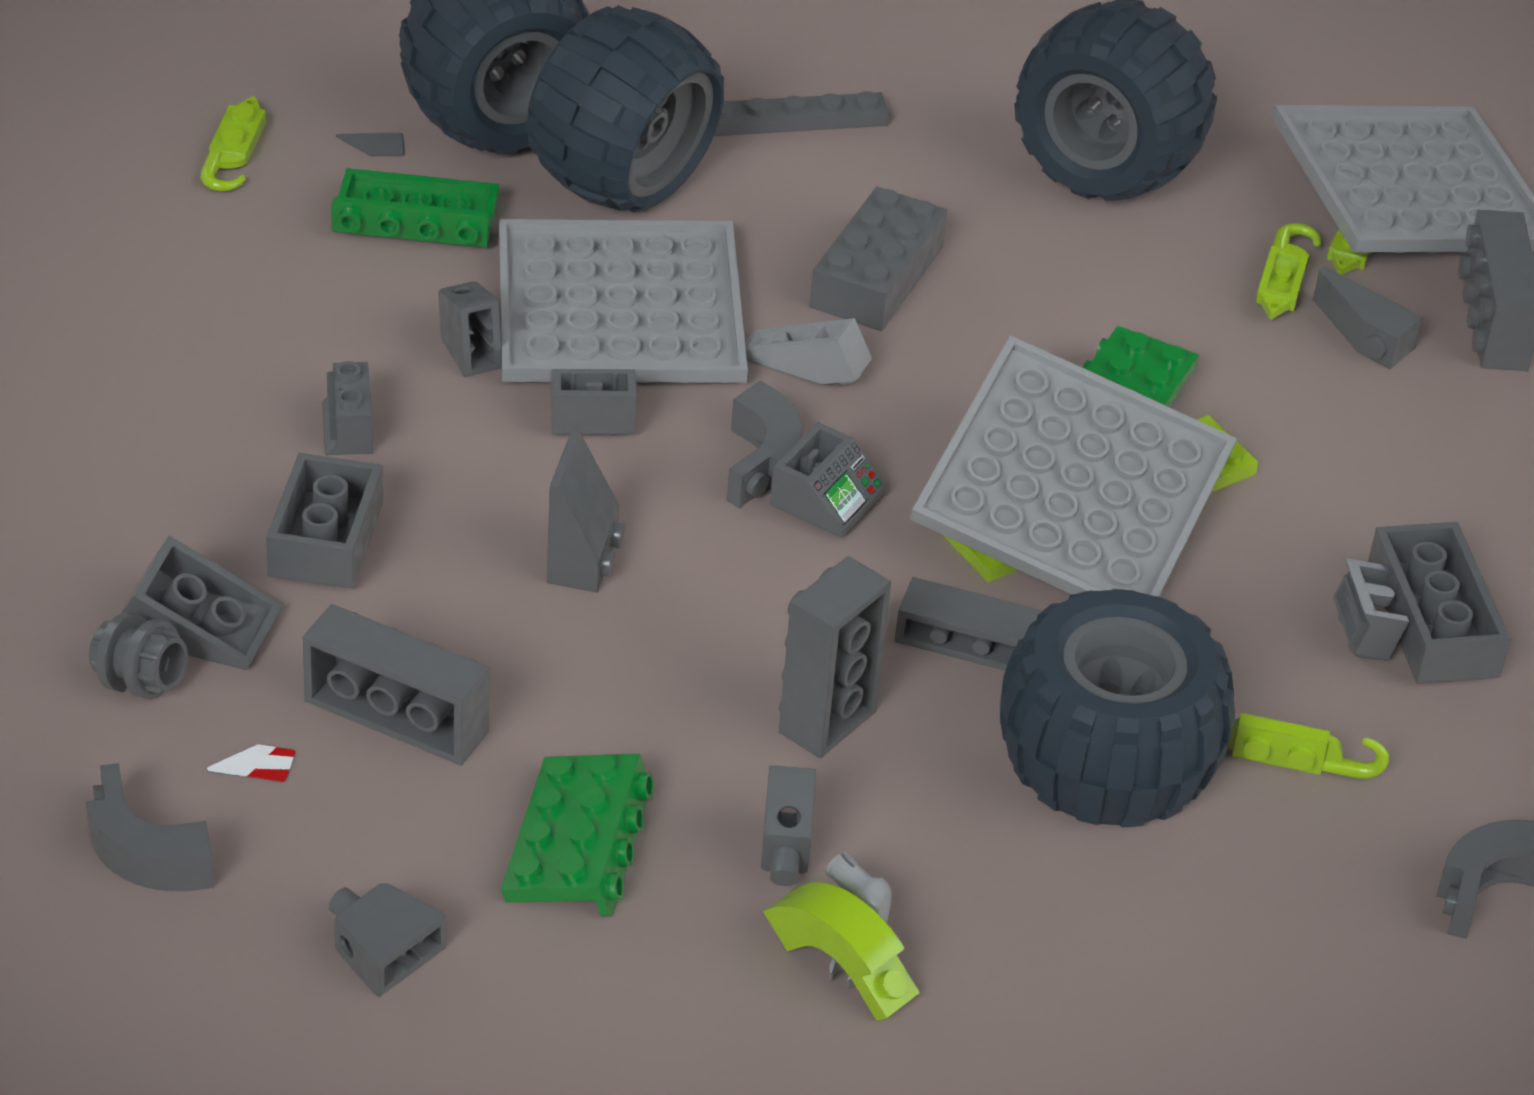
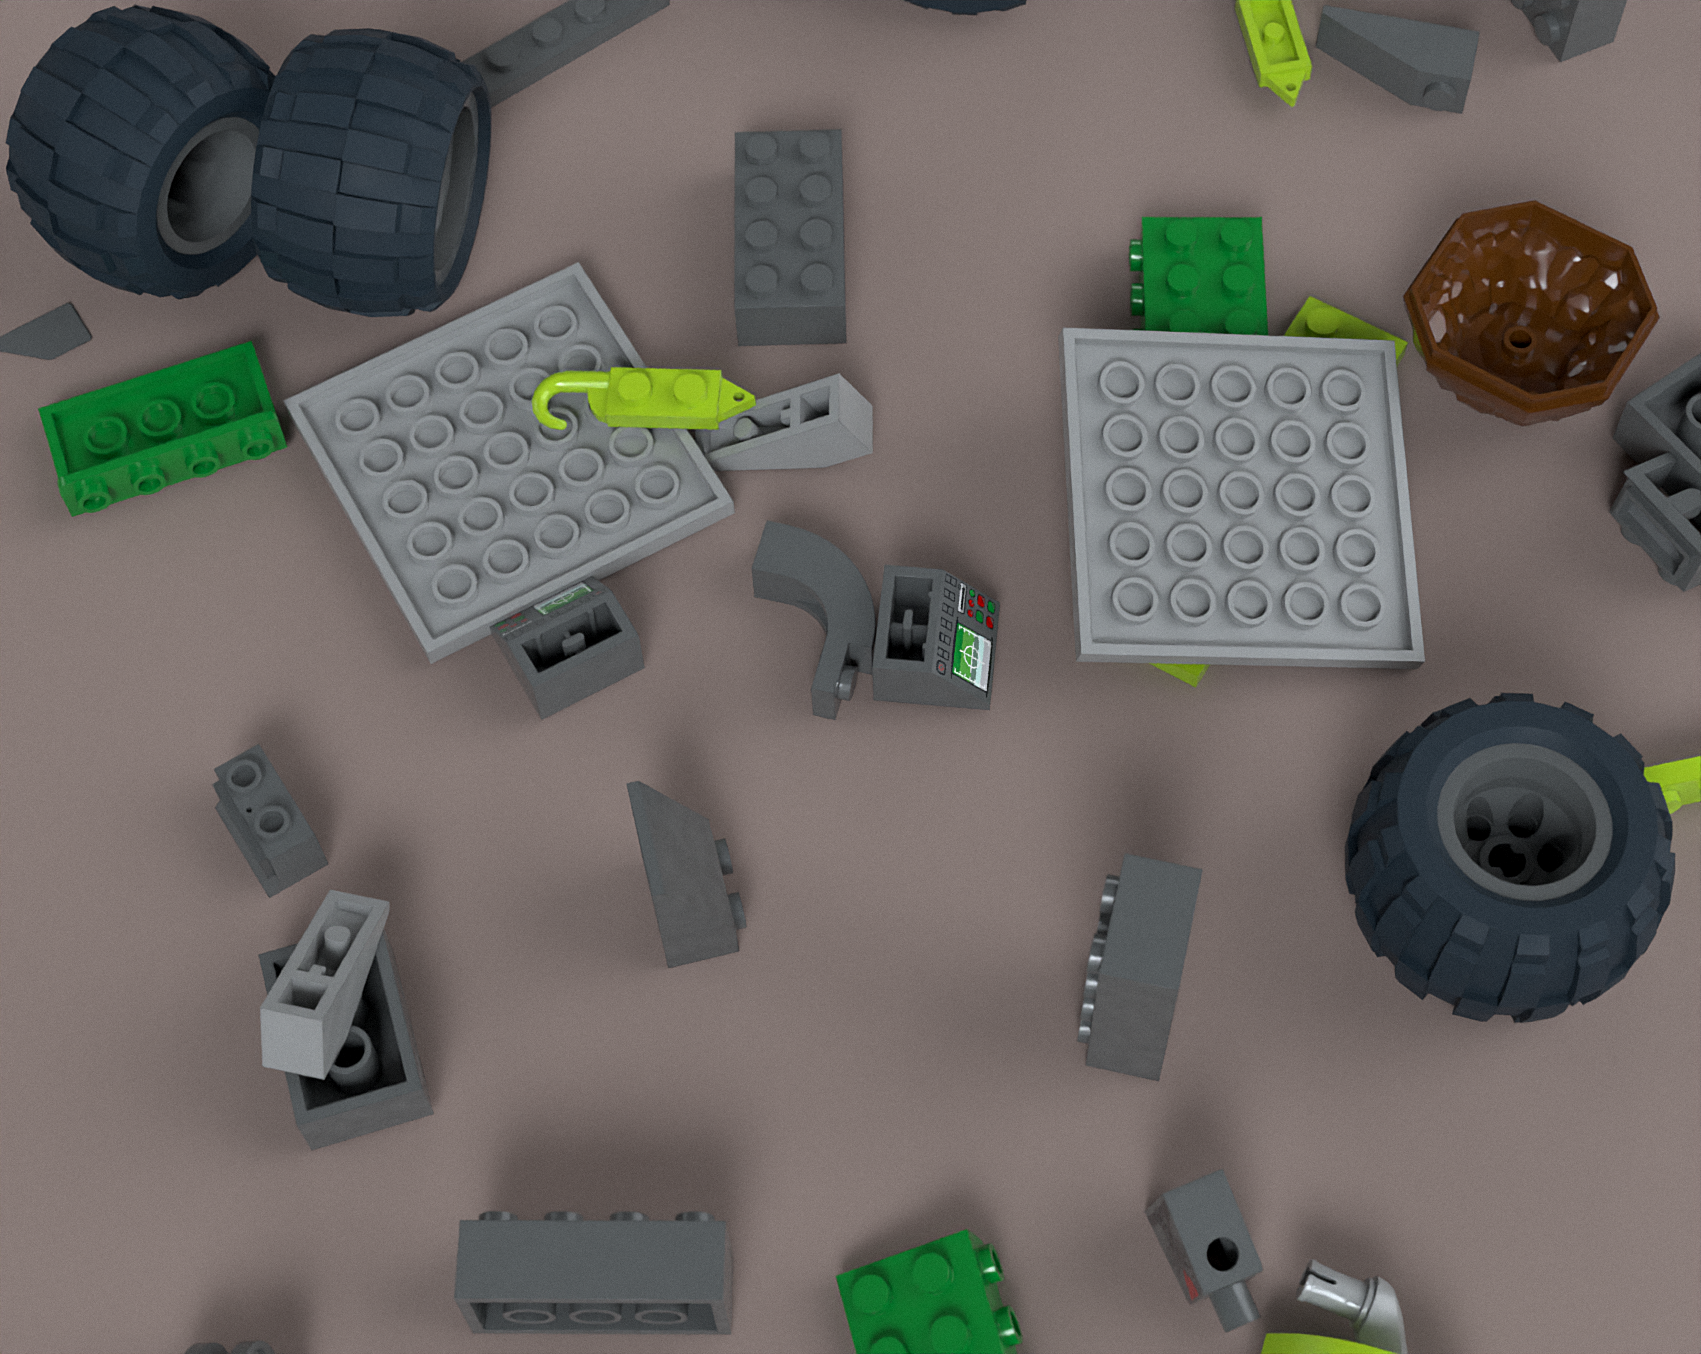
camera: 20 degrees left, 20 degrees up
(207, 605) = (259, 1267): dark grey slope -> none
(322, 471) = (321, 985): none -> light grey slope
(466, 314) = (331, 586): dark grey torso -> none
(727, 297) = (647, 397): none -> lime plate
(961, 623) = (1249, 778): dark grey brick -> none
(1335, 458) = (1529, 313): none -> reddish brown rock

